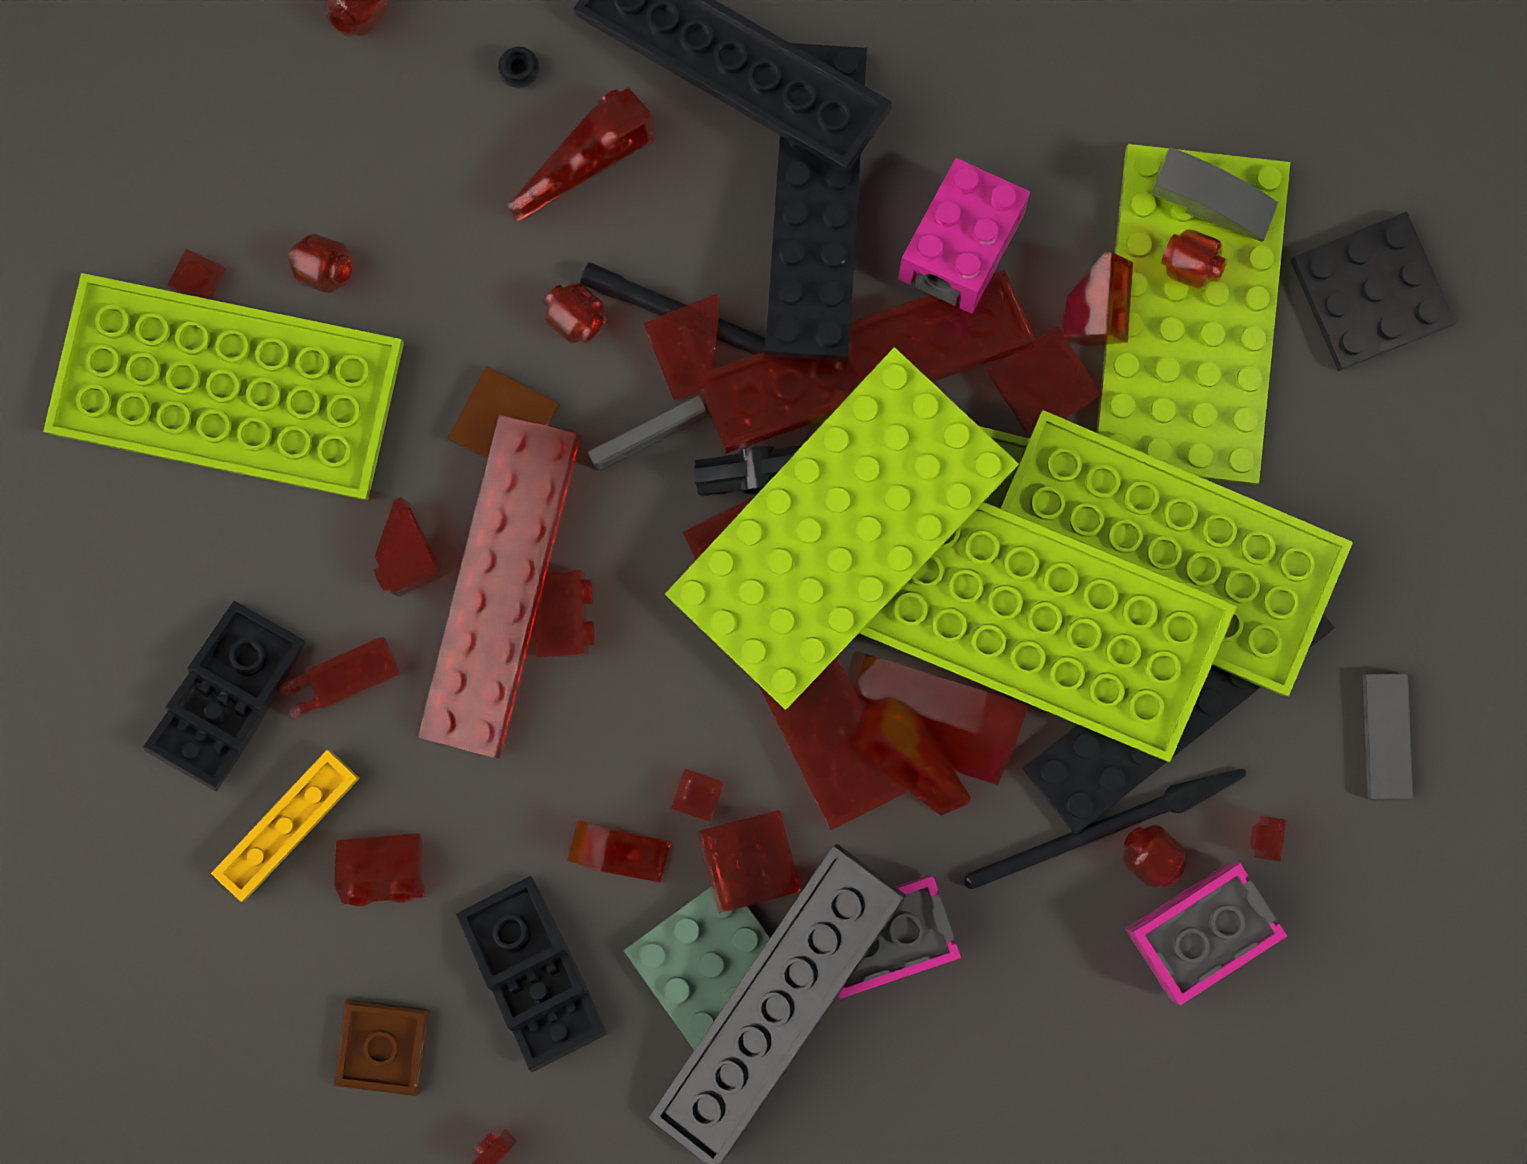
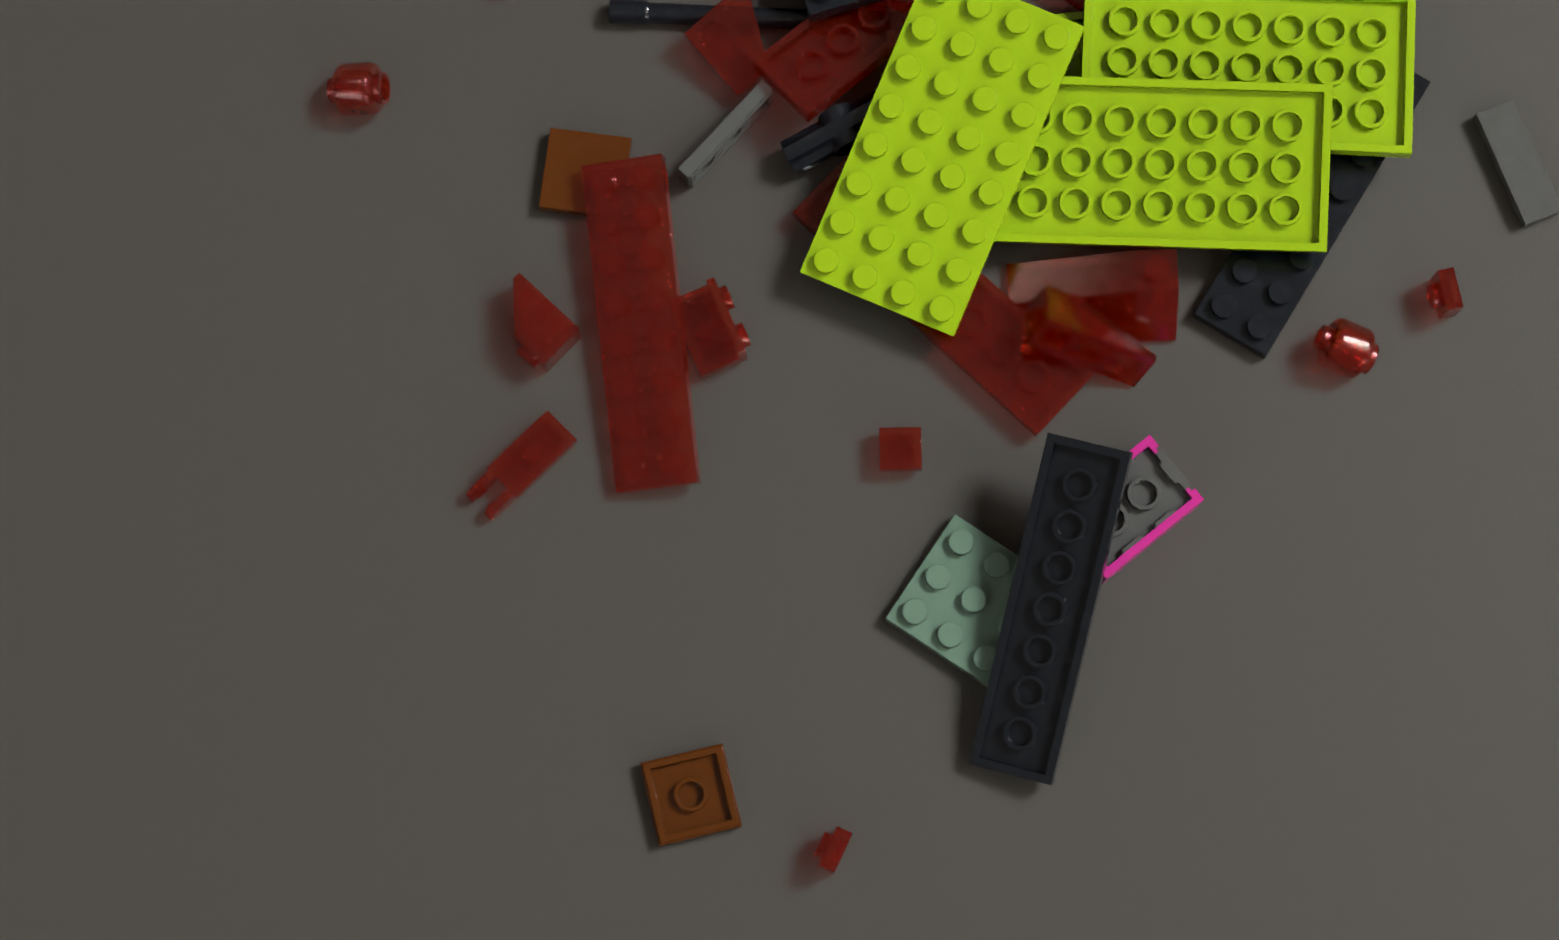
camera: 20 degrees left, 5 degrees down
(196, 275) = (244, 145): clear red plate -> none
(224, 386) = (309, 236): lime plate -> none
(224, 695) = (418, 521): black slope -> none
(285, 825) = (522, 620): yellow plate -> none
(379, 869) = (627, 628): clear red bracket -> none
(531, 974) = (807, 672): black slope -> none
(574, 313) = (615, 48): clear red head -> none
(618, 851) = (845, 527): clear red slope -> none
(749, 861) = (972, 491): clear red plate -> none
(1176, 799) = (1345, 292): black piece -> none
(1206, 932) = (1420, 398): dark grey piece -> none

